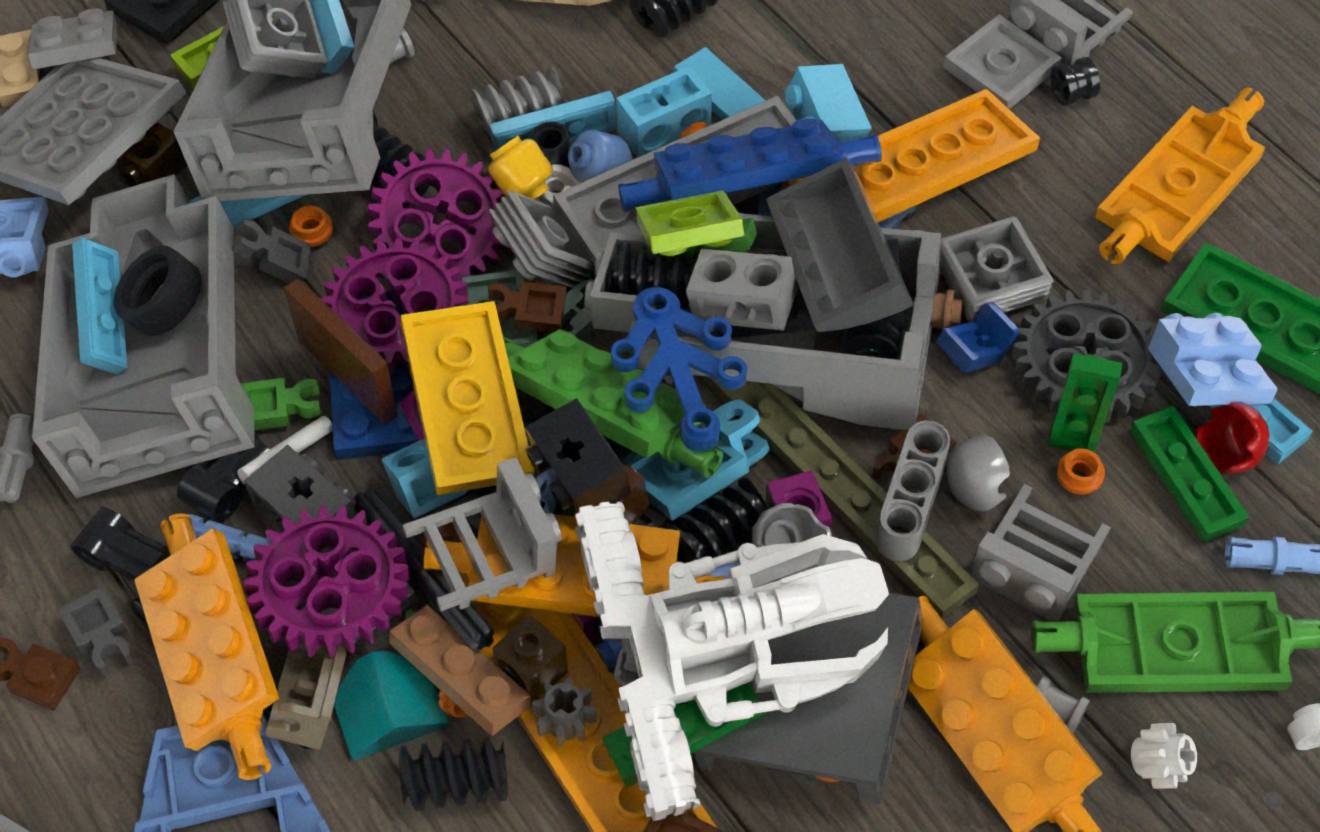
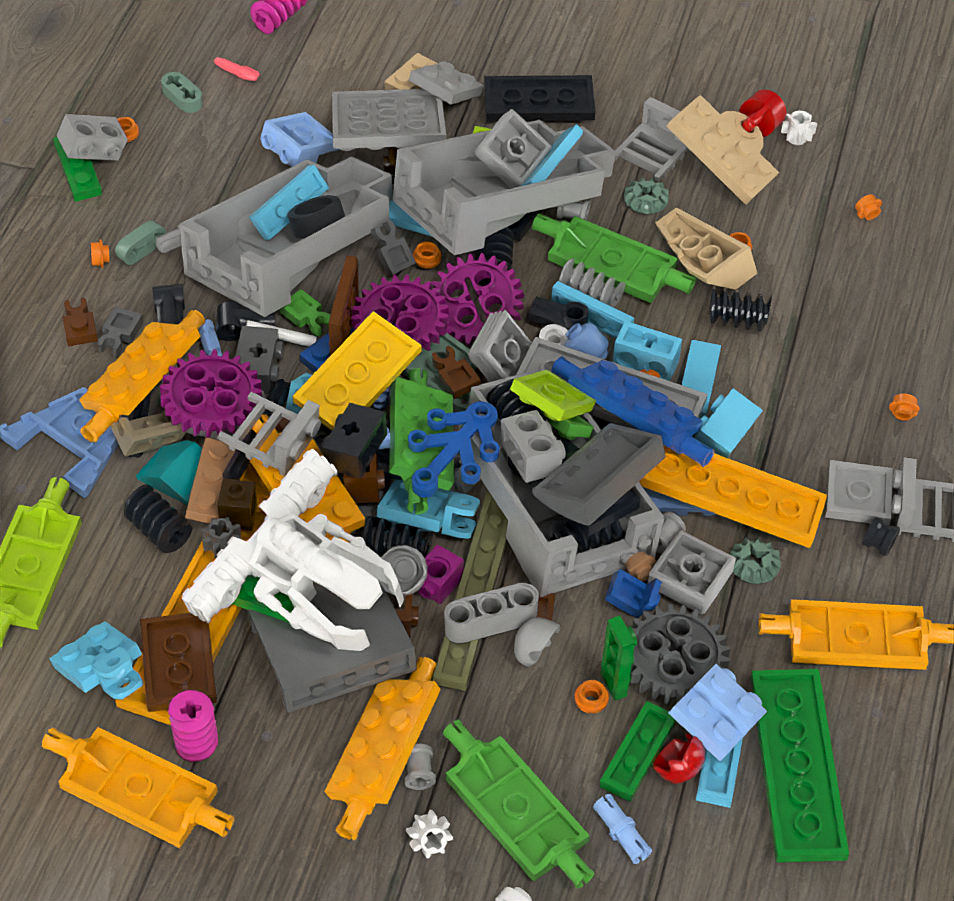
camera: 50 degrees right, 5 degrees down
(496, 52) = (628, 261): none -> bright green plate
(520, 168) = (537, 311): yellow head -> none
(1020, 572) = (491, 704): light grey plate -> none
(1031, 209) = (750, 570): none -> sand green gear

